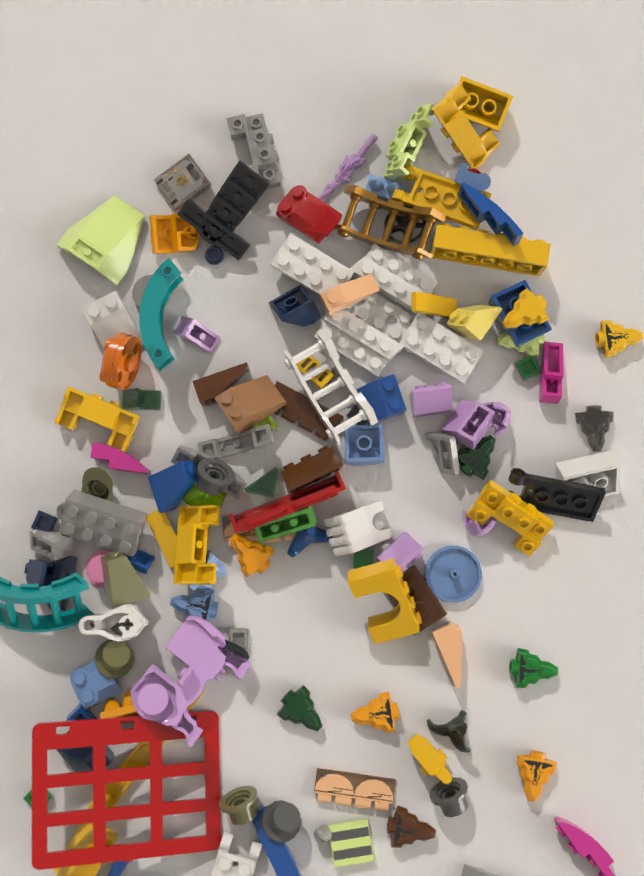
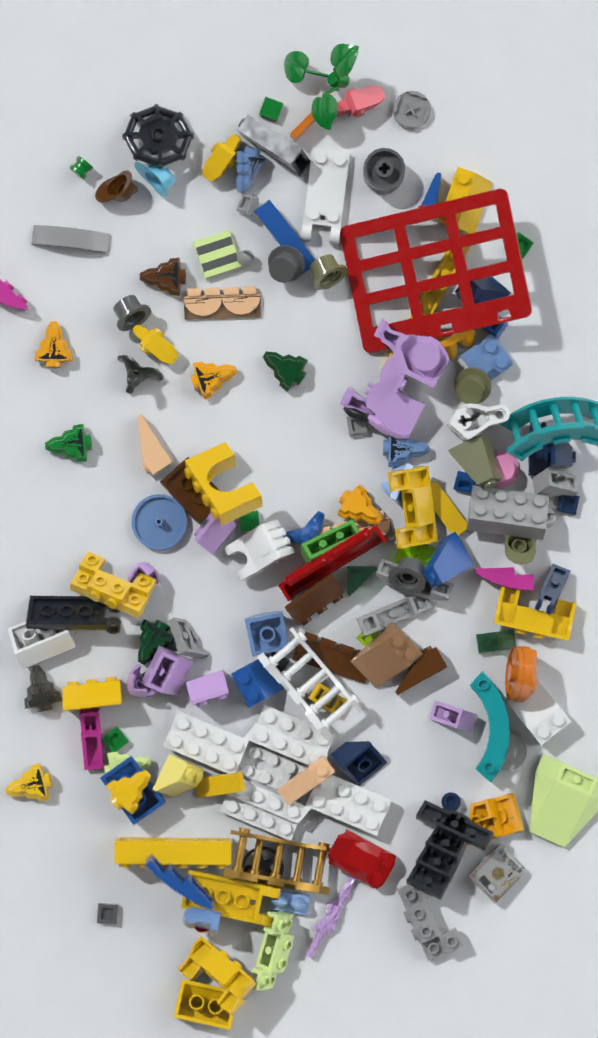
camera: 170 degrees right, 5 degrees up
(74, 441) = (553, 587): none -> dark blue hinge
(546, 413) = (92, 694): none -> yellow slope
(559, 206) = (107, 913): none -> dark grey tile

